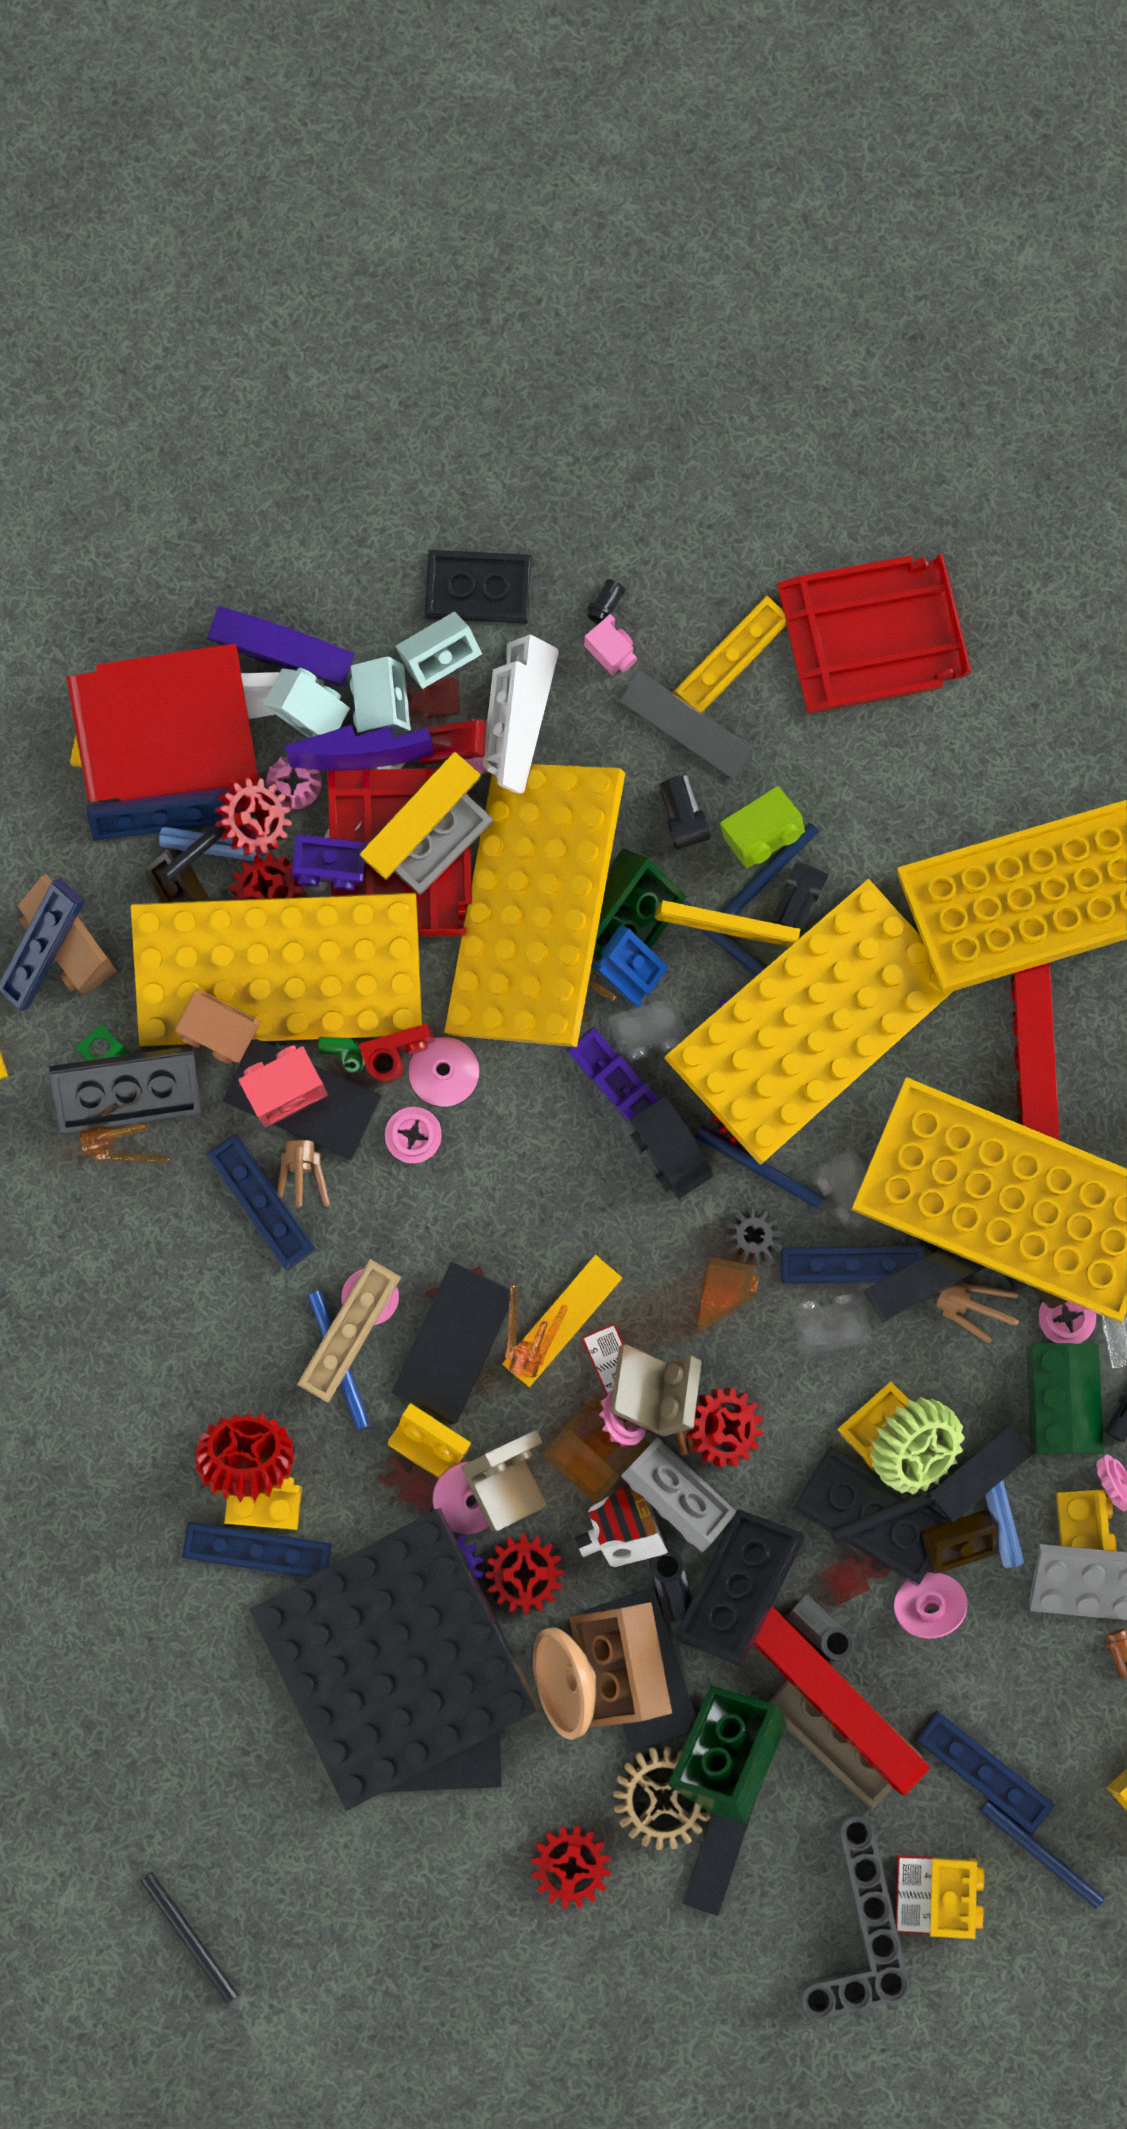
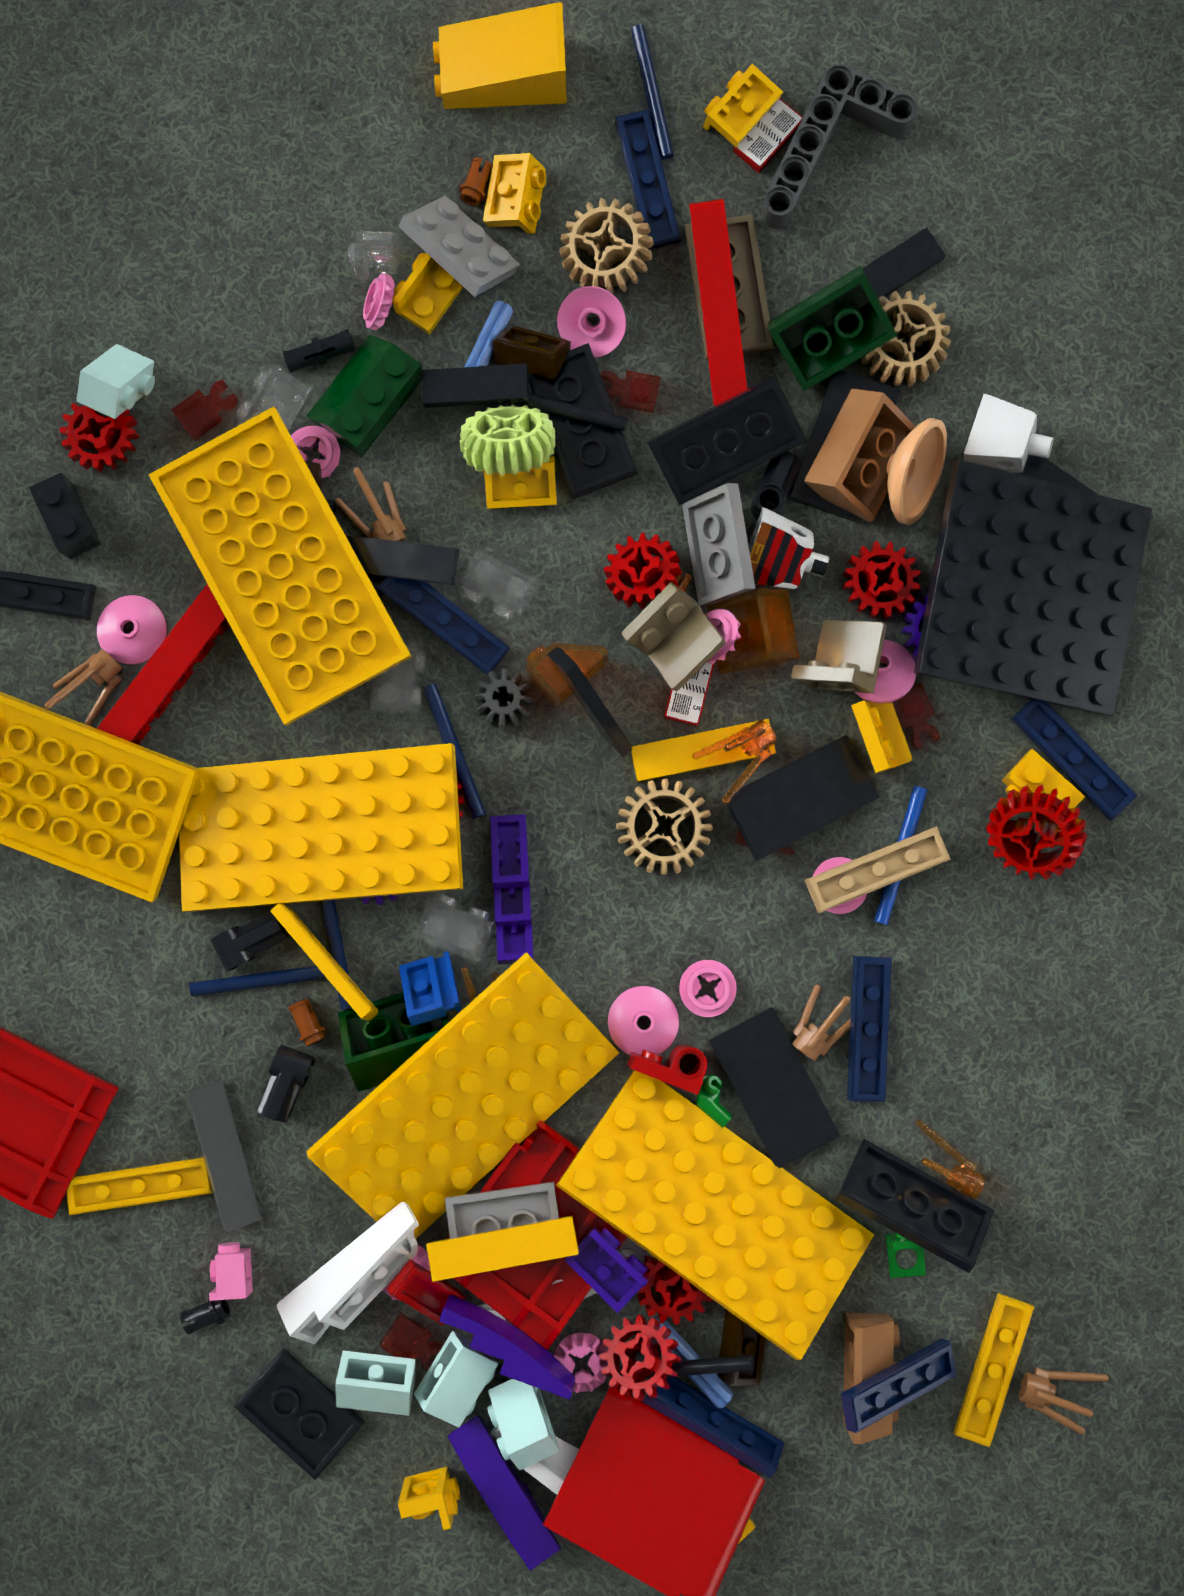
camera: 140 degrees left, 5 degrees up
(217, 1027) = (803, 1199): nougat brick -> none
(282, 1085) = (788, 1107): coral brick -> none
(336, 605) = (430, 1492): none -> yellow bracket
(514, 1773) = (1005, 436): none -> white torso
(536, 1264) = (689, 809): none -> tan gear
(553, 1863) = (1005, 327): red gear -> none
(671, 1148) = (513, 816): black brick -> none
(680, 1278) = (590, 701): none -> black tile
(703, 870) = (307, 1022): none -> dark orange pin
(762, 827) = (231, 1019): lime brick -> none
(818, 1626) = (688, 369): dark grey piece -> none
(962, 1668) = (582, 238): none -> tan gear
(1079, 1076) = (143, 641): none -> bright pink dish
(1083, 1669) = (515, 192): none -> yellow bracket
(1088, 1013) = (100, 669): none -> medium nougat plant

